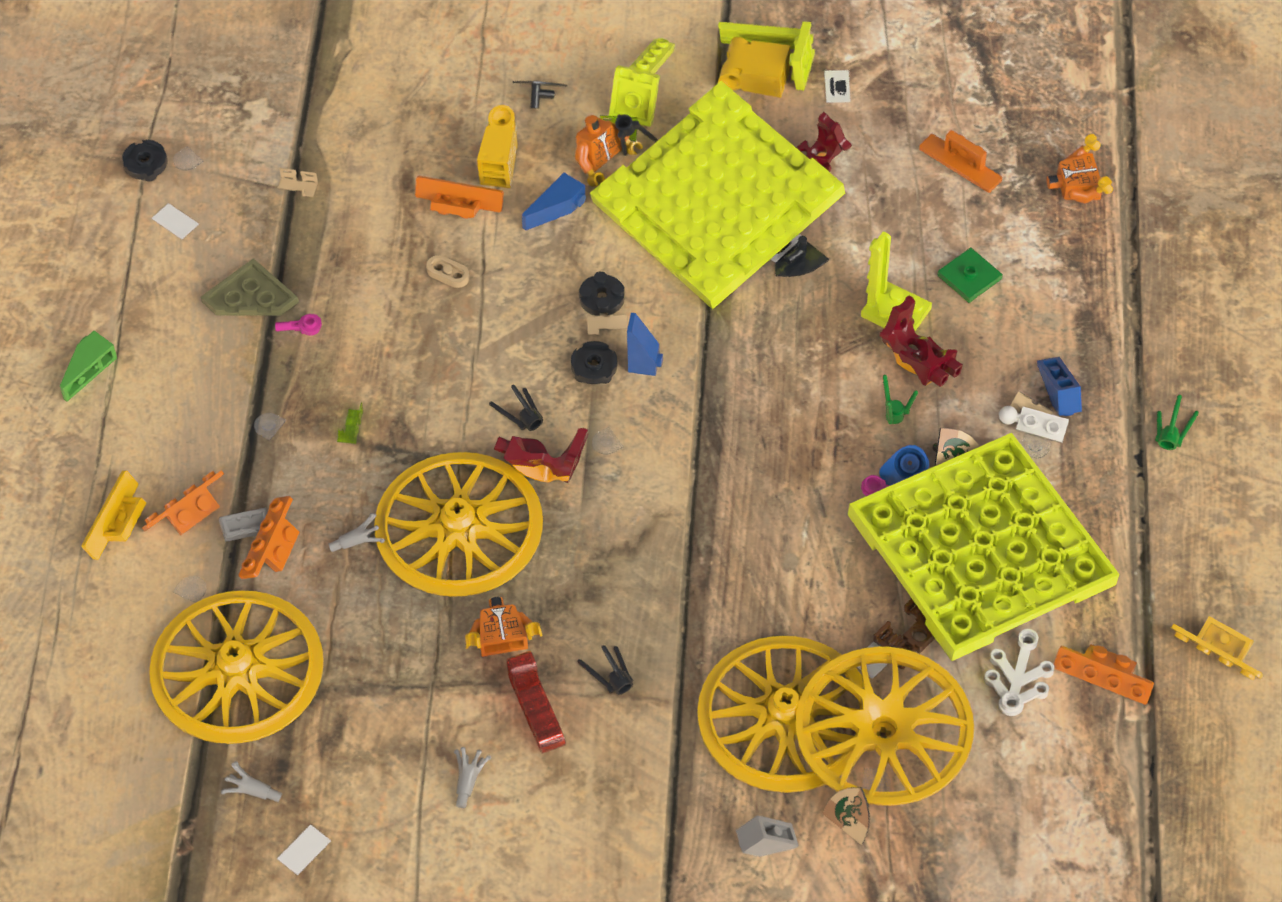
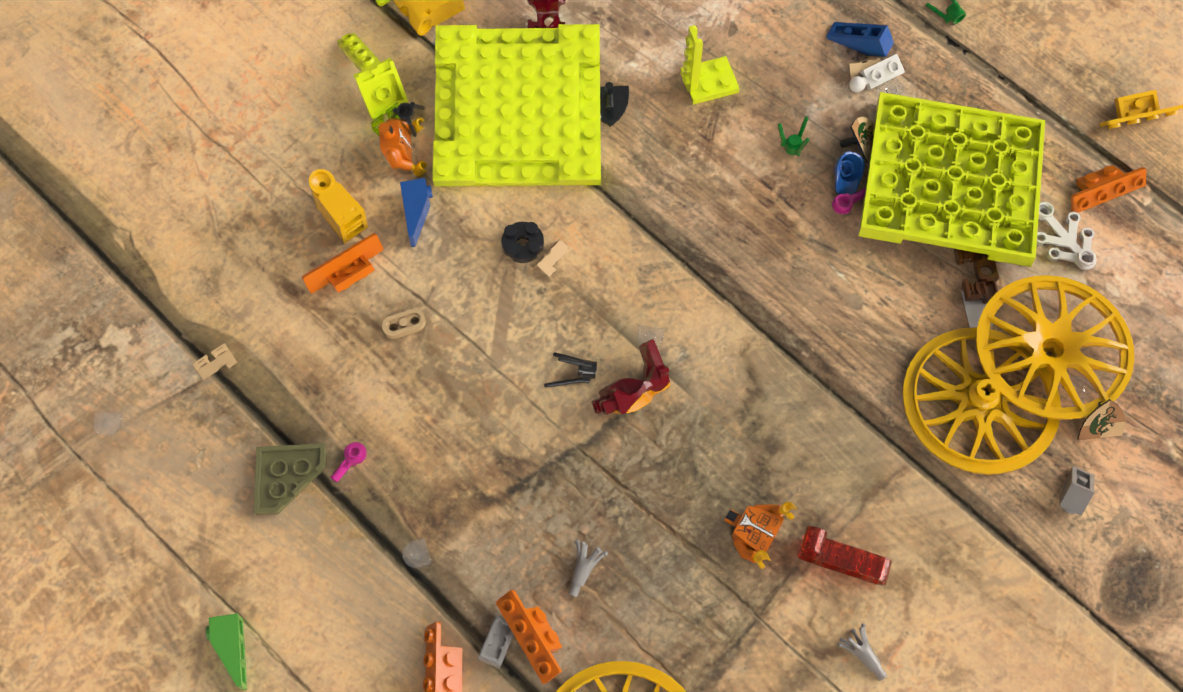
camera: 50 degrees left, 10 degrees up
(145, 170) = (67, 448): black plate -> none
(175, 221) = (157, 476): white sticker -> none
(352, 428) = (480, 504): clear neon green piece -> none
(459, 529) = (637, 497): yellow wheel -> none
(537, 93) = (306, 144): black shield -> none
(595, 374) = (581, 303): black plate -> none
(620, 679) = (865, 483): black plant -> none
(642, 348) = (604, 253): blue slope -> none
(930, 360) = (774, 92): dark red hips -> none
(969, 275) = (722, 18): green plate -> none

